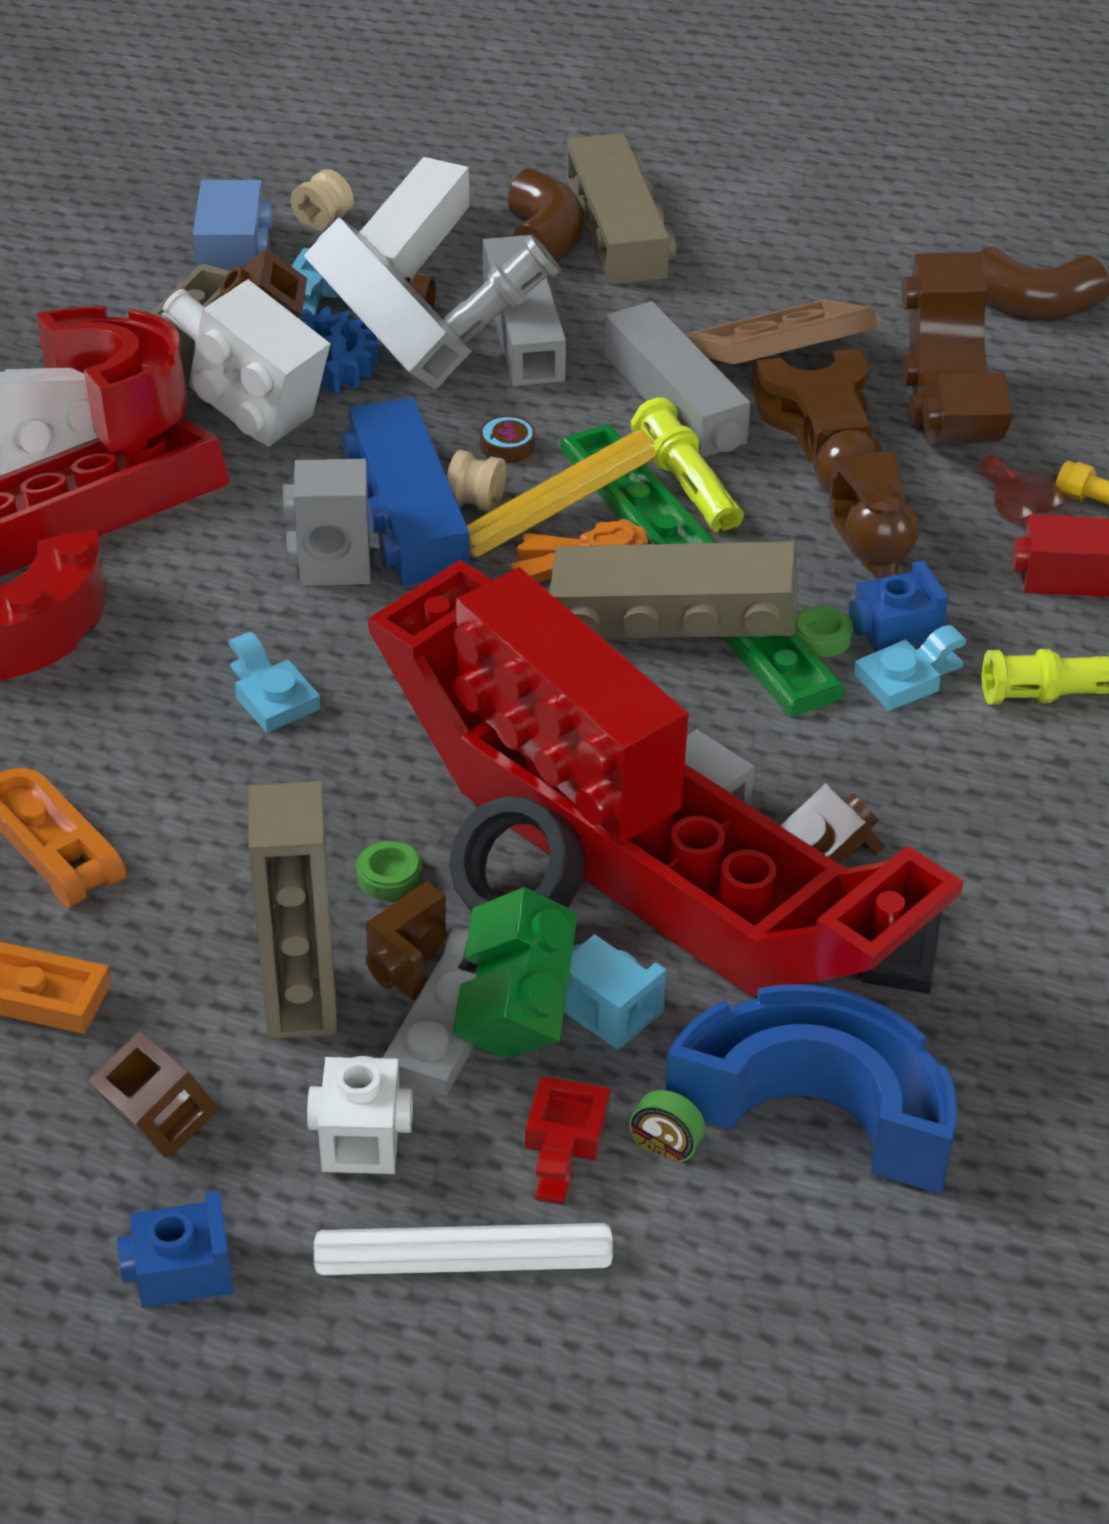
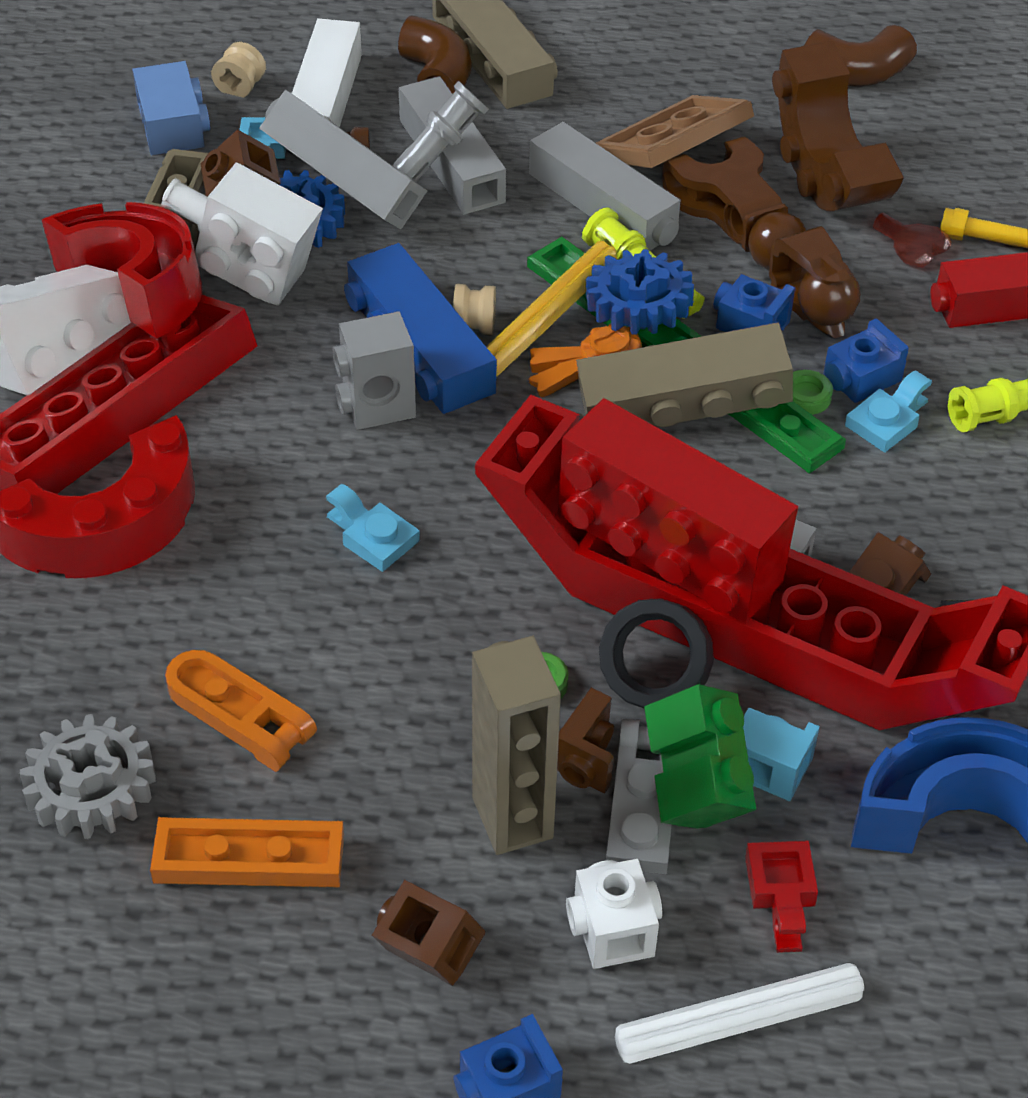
camera: 15 degrees left, 5 degrees up
(507, 438) = (481, 264): reddish brown tile -> none
(662, 489) = (639, 291): none -> blue gear
(667, 1125) = (865, 863): tile -> none
(796, 520) = (752, 304): none -> blue brick

